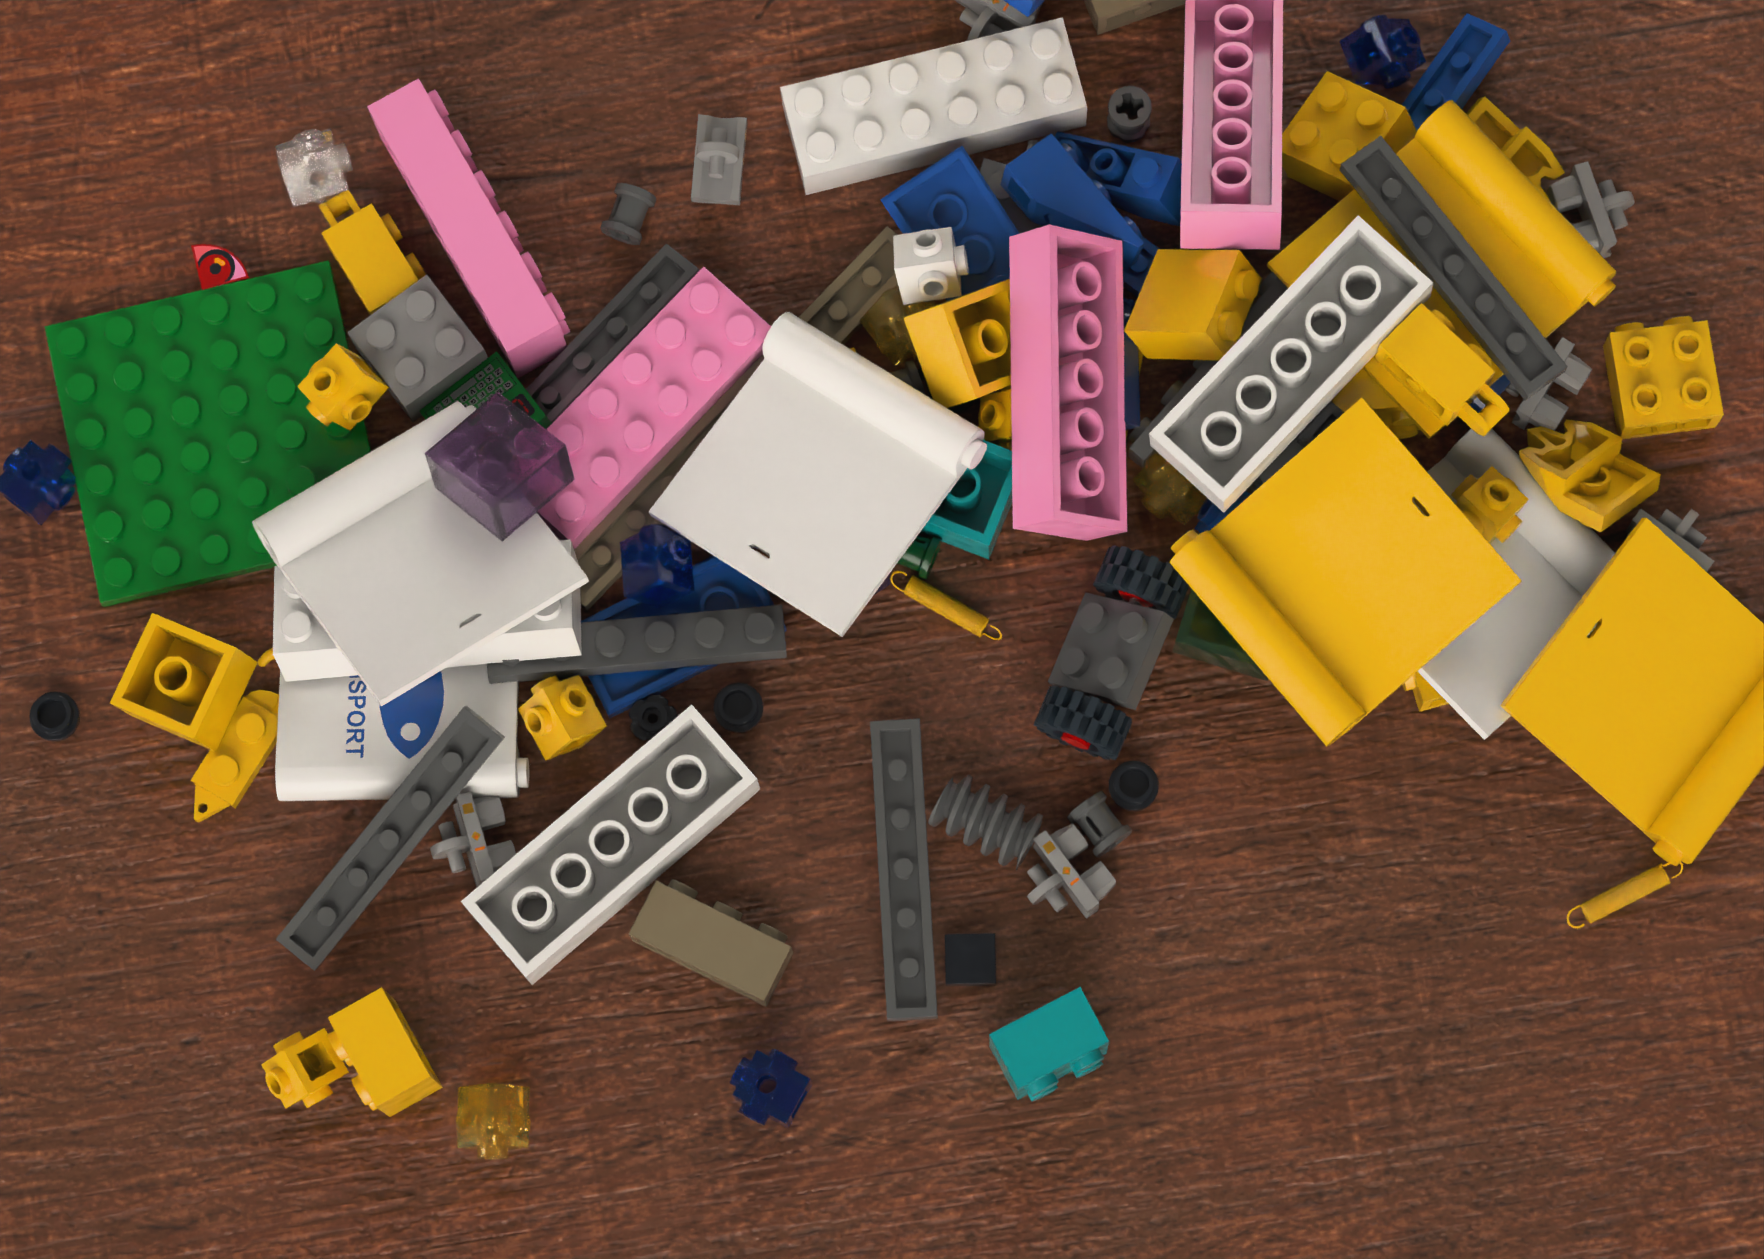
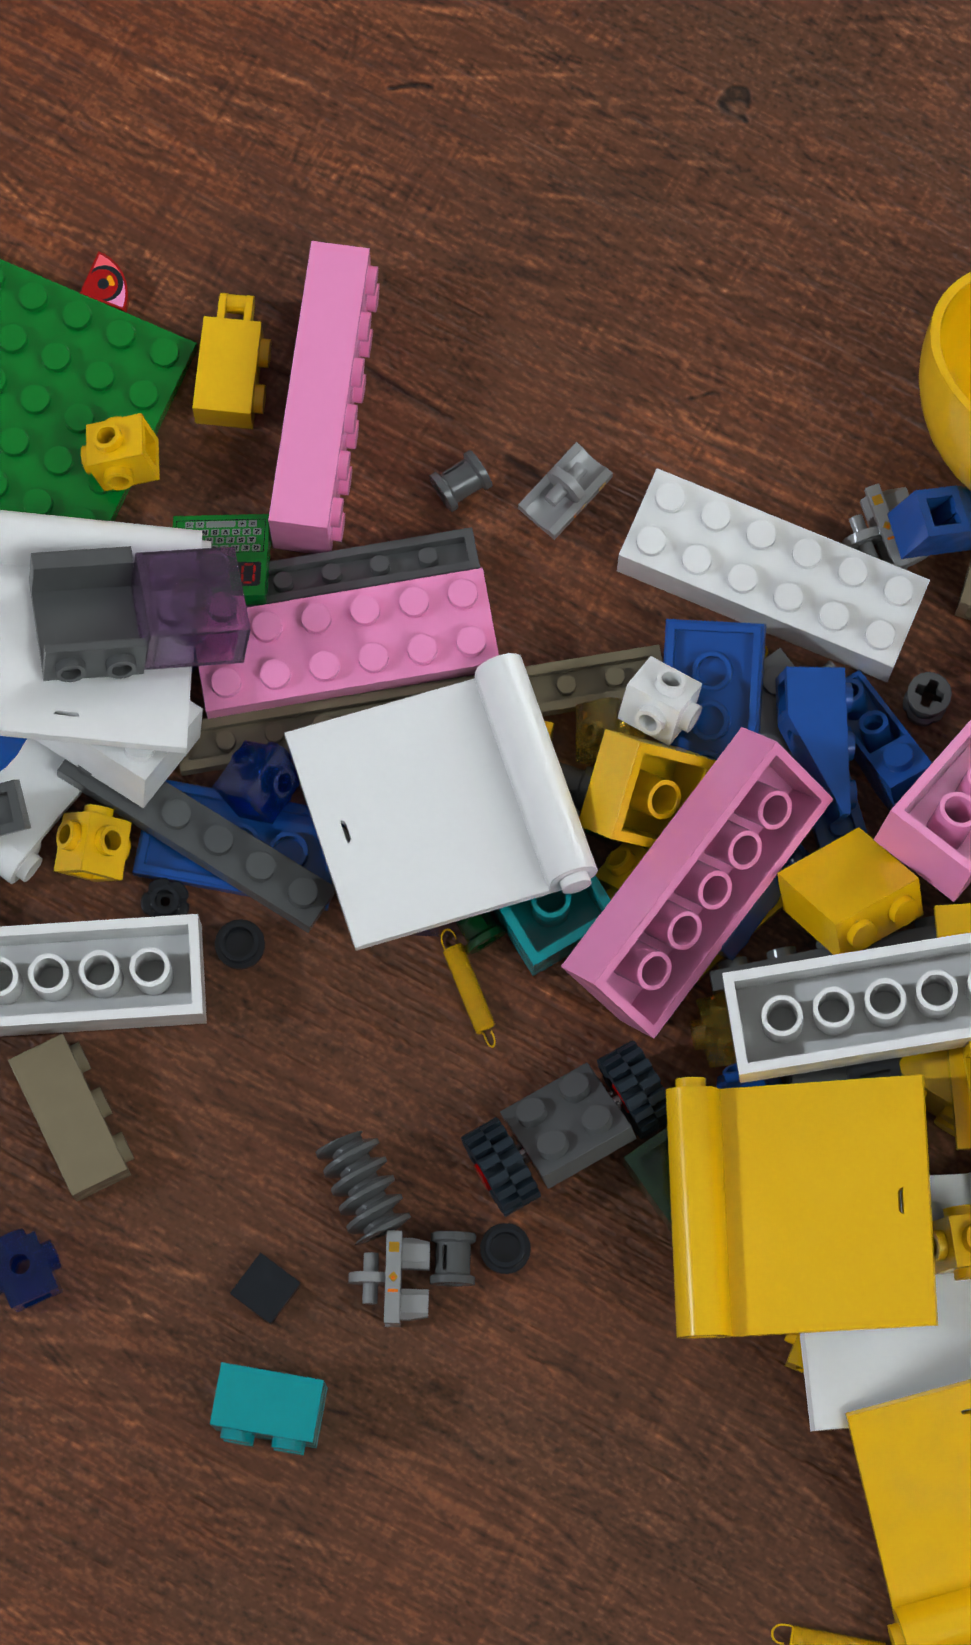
camera: 30 degrees right, 0 degrees up
(313, 166) = (240, 258): clear brick -> none
(417, 346) = (210, 463): light grey brick -> none
(421, 532) = (86, 614): none -> dark grey panel
(903, 870) = (267, 1175): dark grey plate -> none

